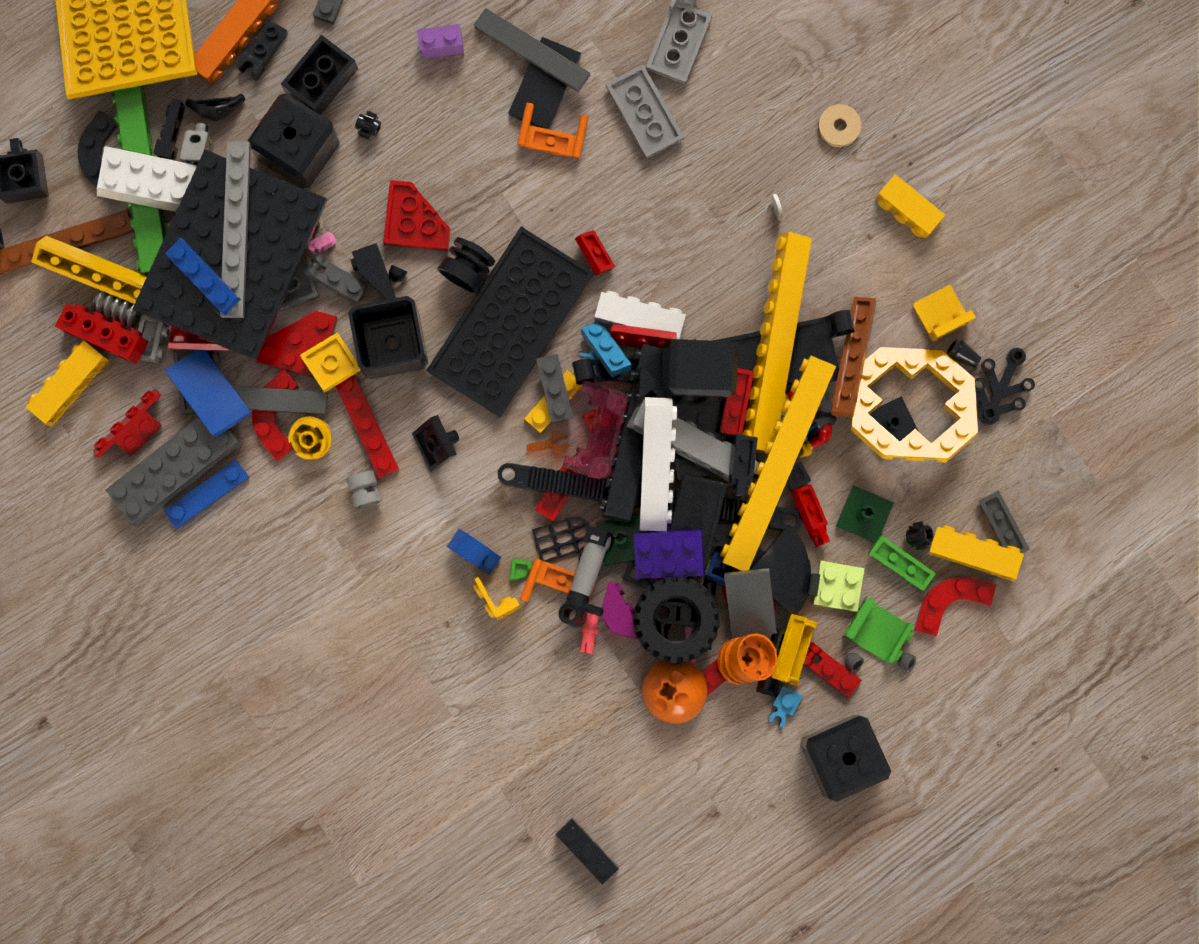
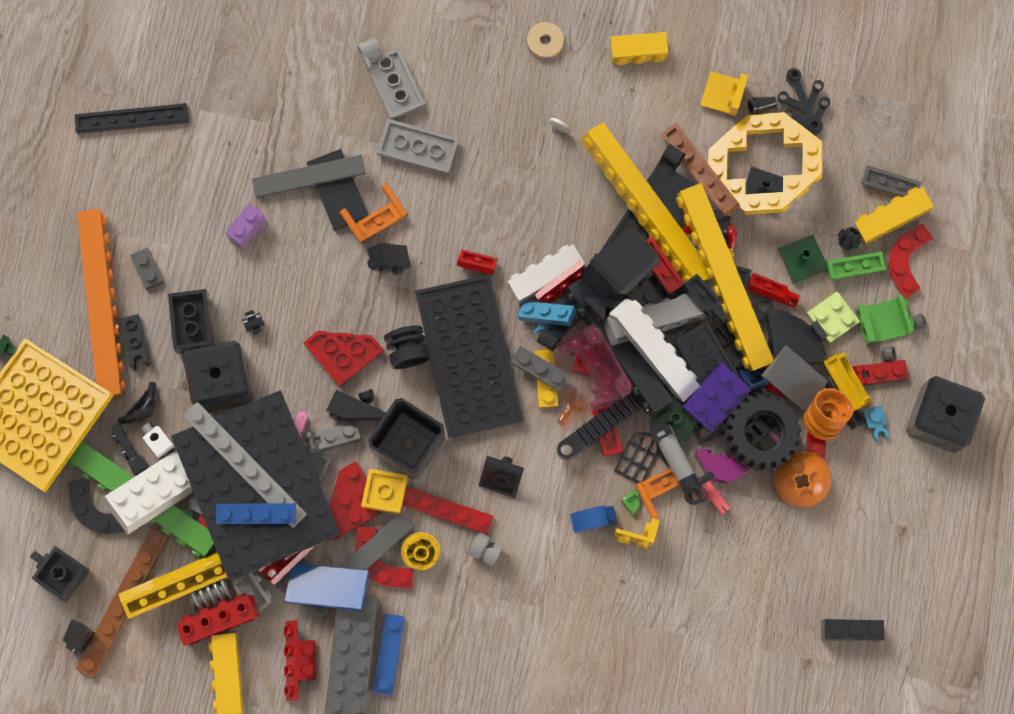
camera: 45 degrees left, 5 degrees down
(525, 179) = (388, 258): none -> black brick

